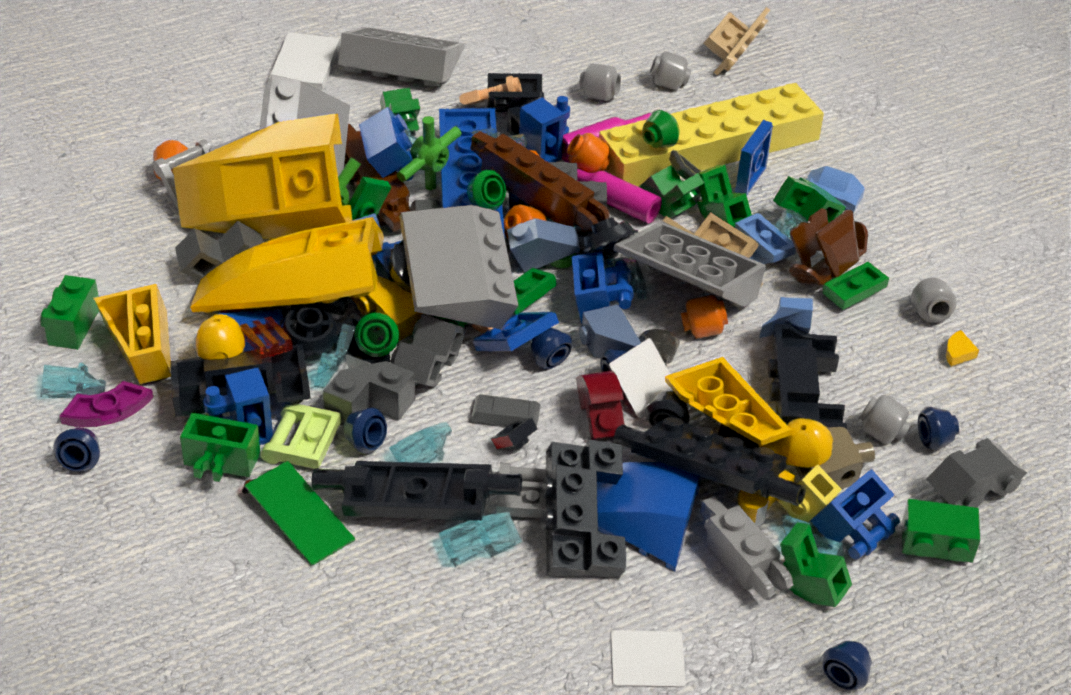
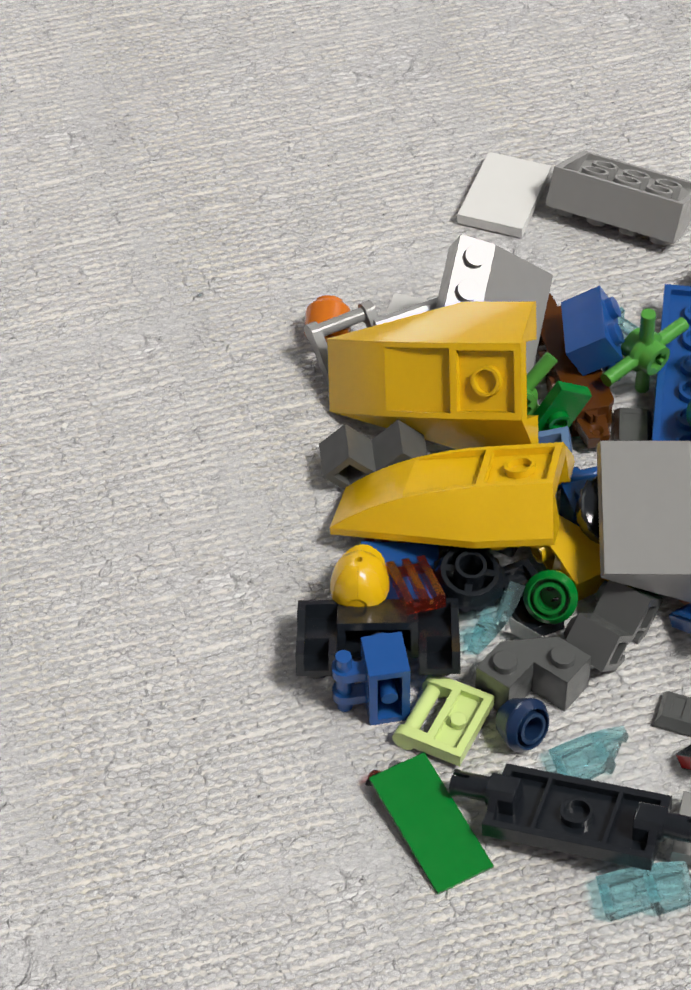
camera: 15 degrees right, 5 degrees up
(67, 382) = (178, 608): clear light blue slope -> none
(70, 312) = (188, 516): green brick -> none
(77, 449) = (178, 702): dark blue cone -> none
(107, 406) = (218, 646): magenta tile -> none
(139, 329) = (267, 550): yellow wedge -> none
(219, 446) = (345, 723): green brick -> none
(401, 103) = (616, 277): green brick -> none

